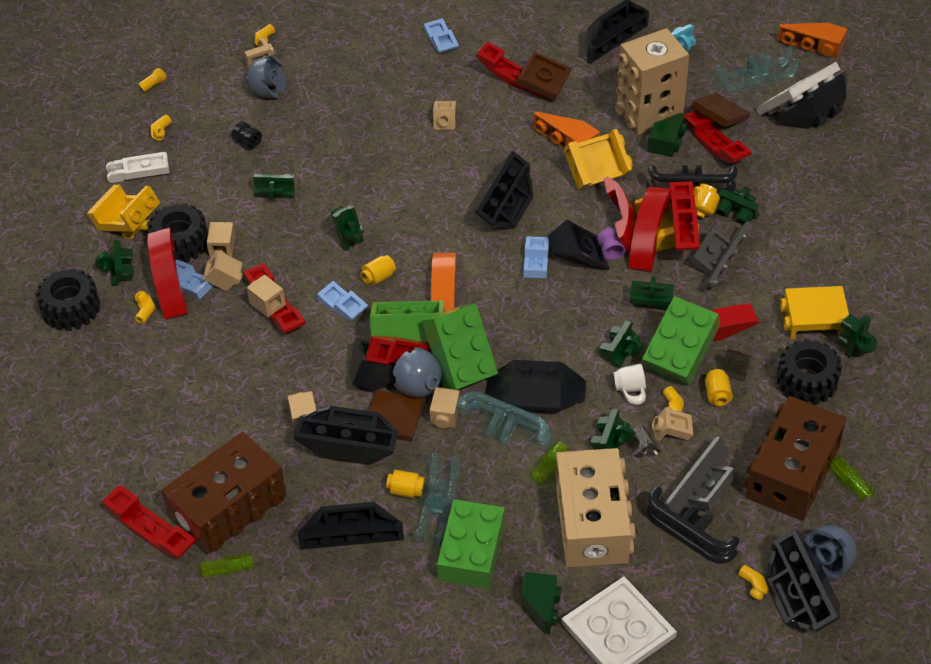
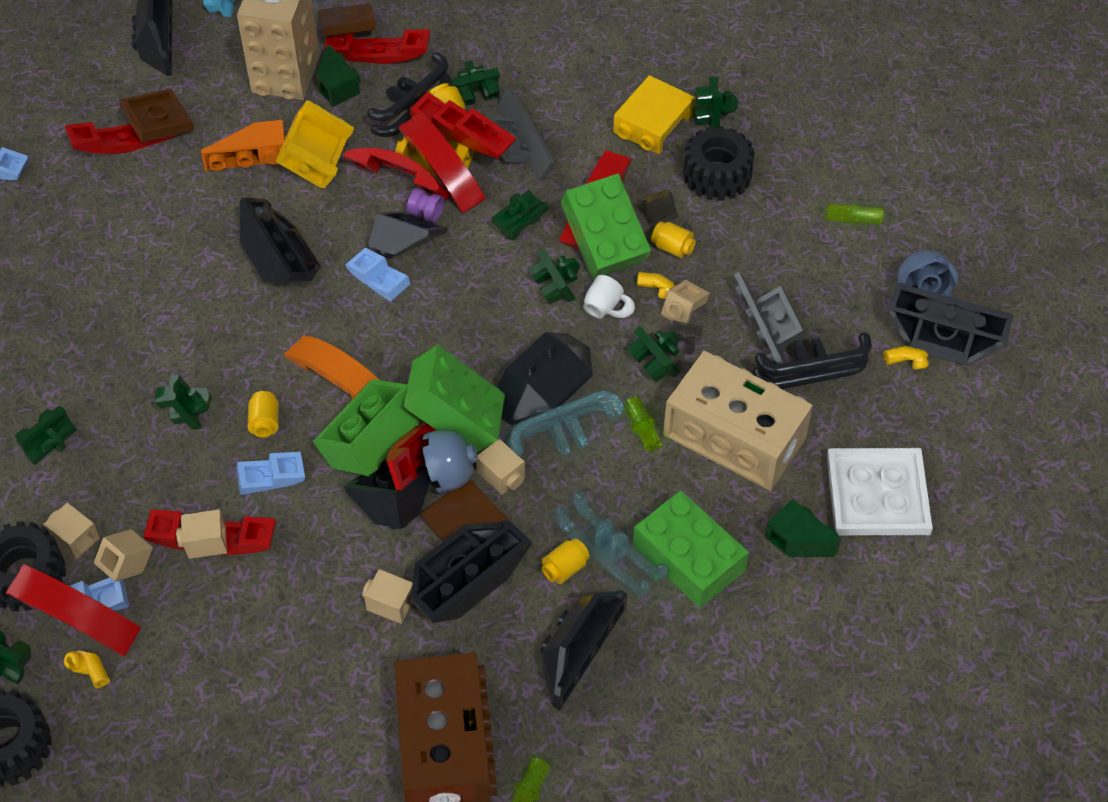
camera: 55 degrees left, 5 degrees up
(444, 115) = (111, 225): tan bracket -> none
(794, 457) = (811, 234): reddish brown piece -> none

